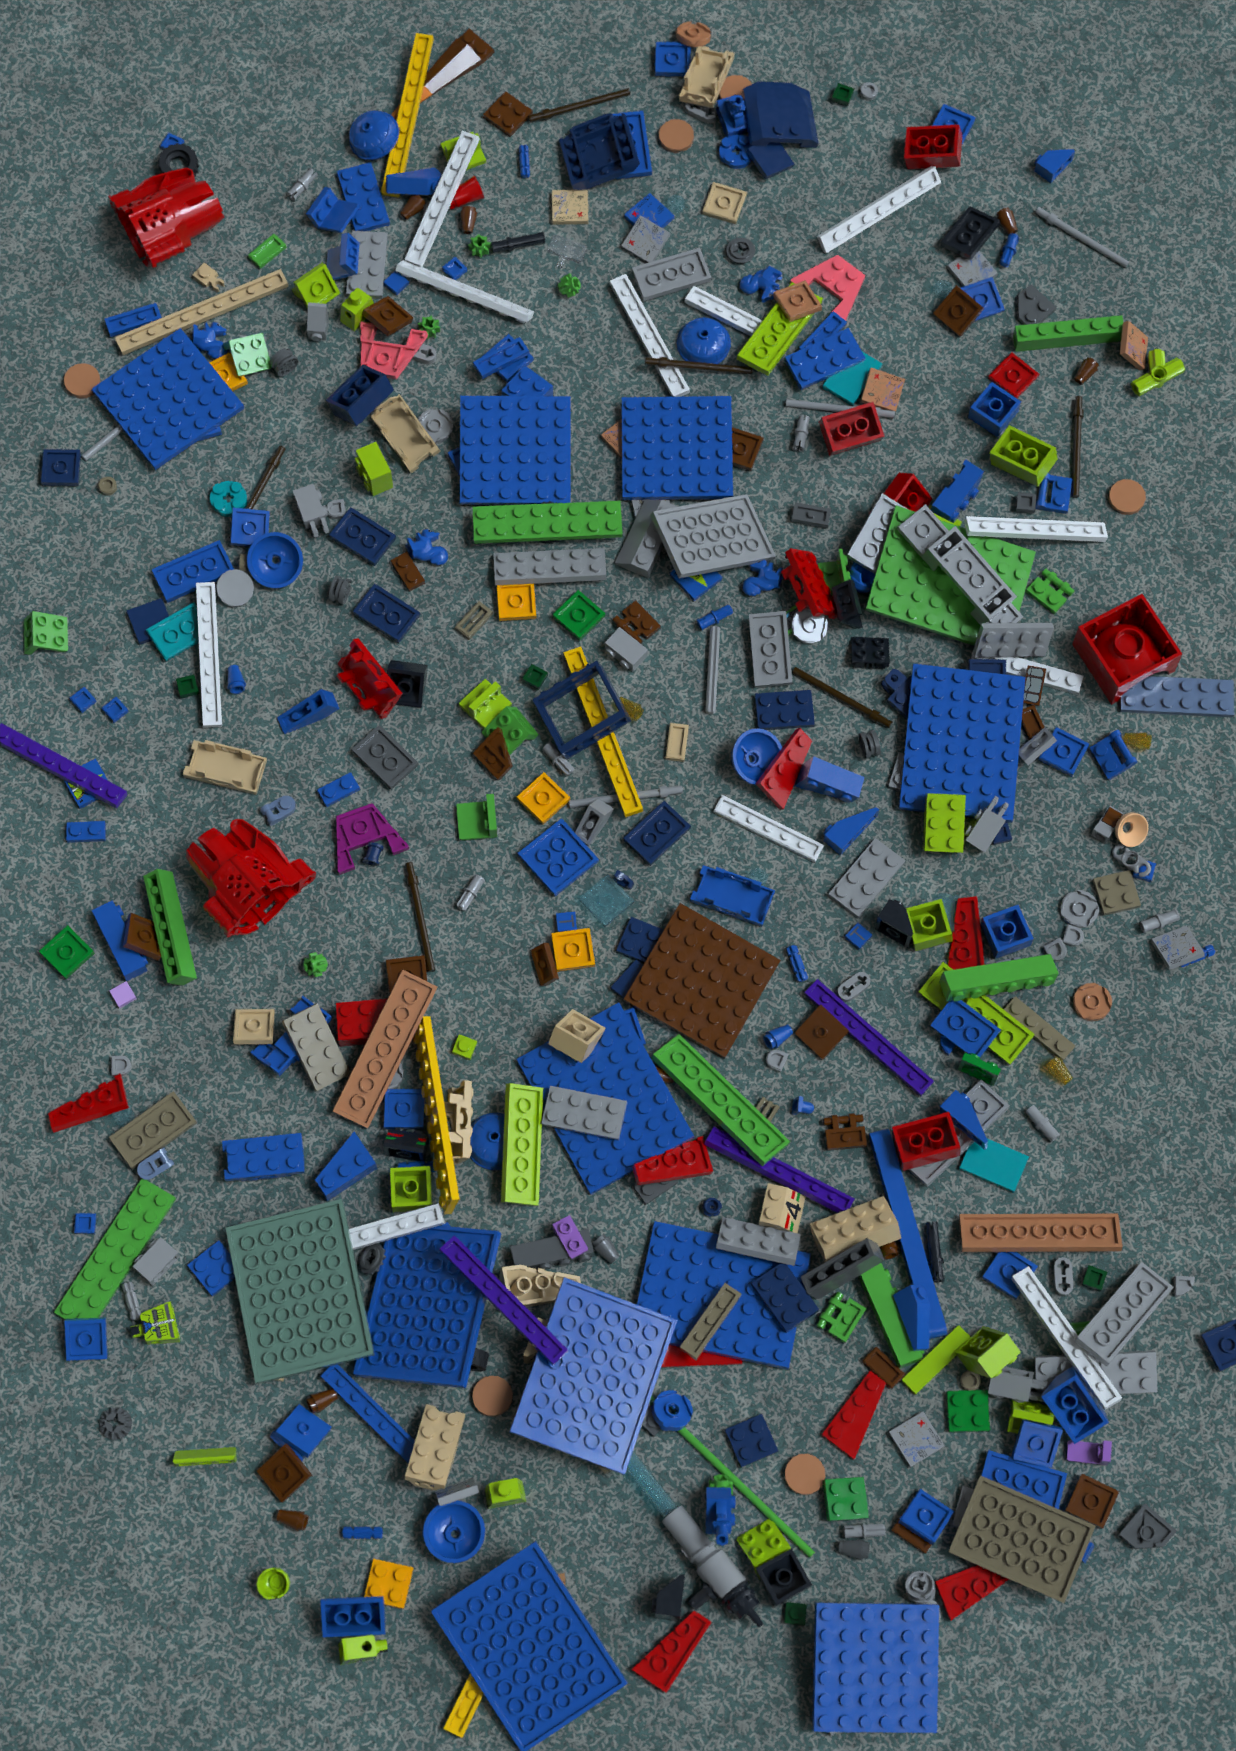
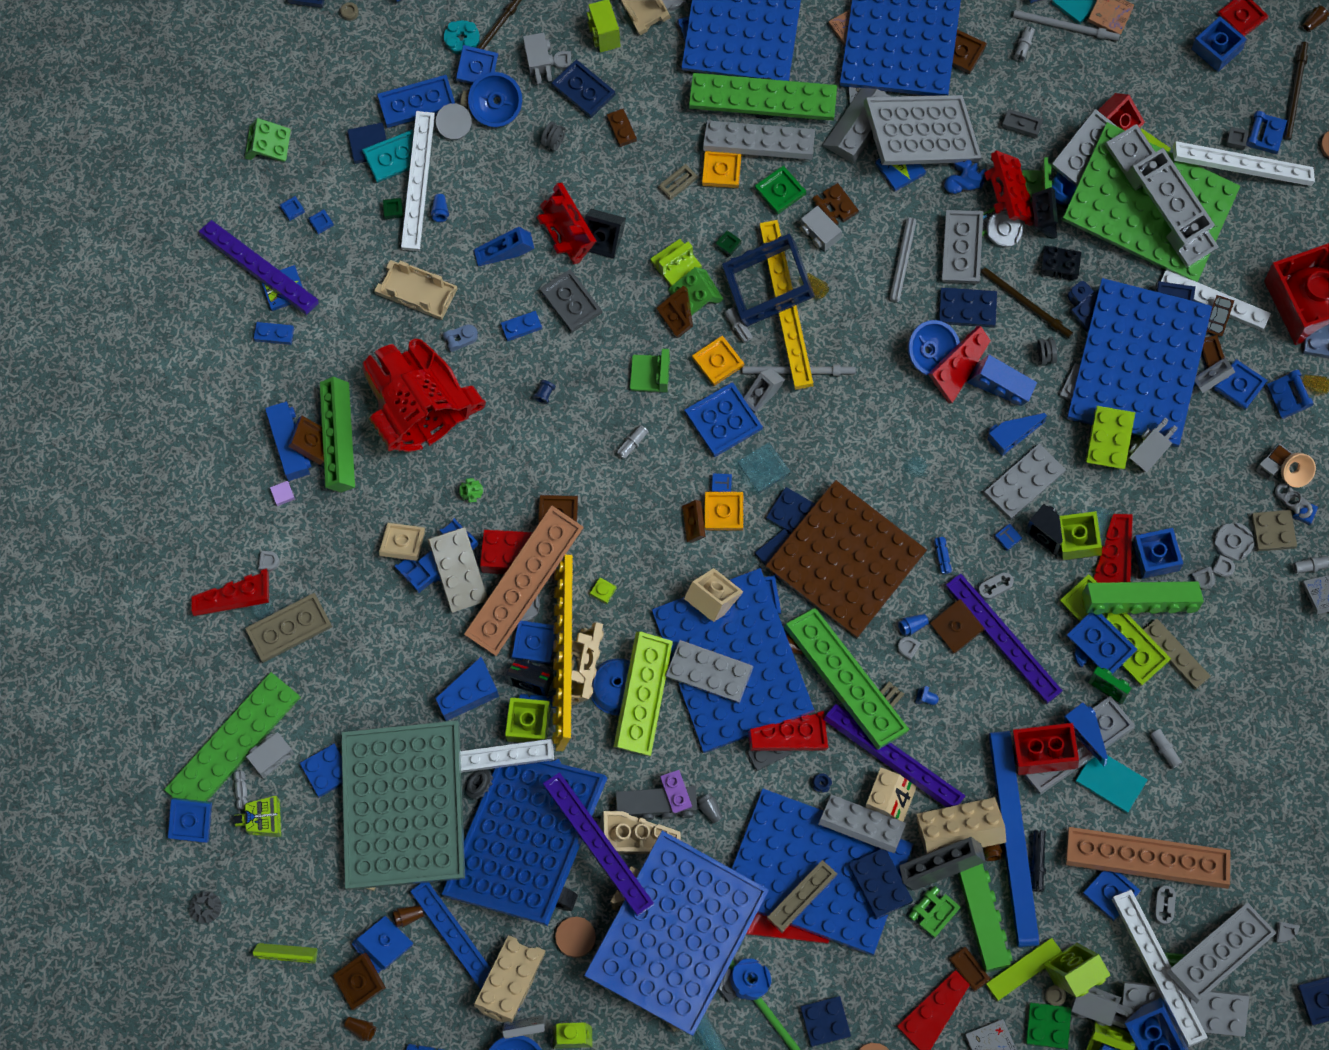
camera: 15 degrees right, 0 degrees up
(66, 952) = (235, 445): green plate -> none
(85, 1223) = (209, 708): blue tile -> none
(148, 1169) = (277, 664): sand blue plate -> none
(264, 1157) = (390, 669): blue piece -> none
(359, 828) = (538, 364): magenta wing -> none
(386, 613) = (594, 164): dark blue plate -> none
(412, 882) = (578, 424): dark brown bar -> none
(423, 549) = (640, 108): blue animal -> none
(623, 880) = (782, 449): dark blue tile -> none
(657, 833) = (824, 409): dark blue plate -> none
(677, 742) = (857, 324): tan tile -> none
(714, 617) = (912, 209): blue axle -> none
(733, 895) = (890, 480): blue piece -> none
(768, 828) = (934, 420): white tile -> none
(845, 1138) = (965, 734): reddish brown plate -> none
(851, 428) = (1074, 45): red brick -> none
(915, 1313) = (1009, 919): blue slope -> none
(958, 493) = (1172, 119): blue wedge -> none
(1003, 835) = (1167, 458): dark blue tile -> none
(1013, 639) = (1205, 268): light grey plate -> none
(1023, 456) = (1241, 92): lime brick -> none
(1046, 594) = (1245, 230): bright green plate -> none
(1059, 1070) = (1190, 698): clear yellow cone -> none
(1092, 1002) = (1228, 636): nougat tile -> none
(1094, 1278) = (1197, 911): dark green plate -> none

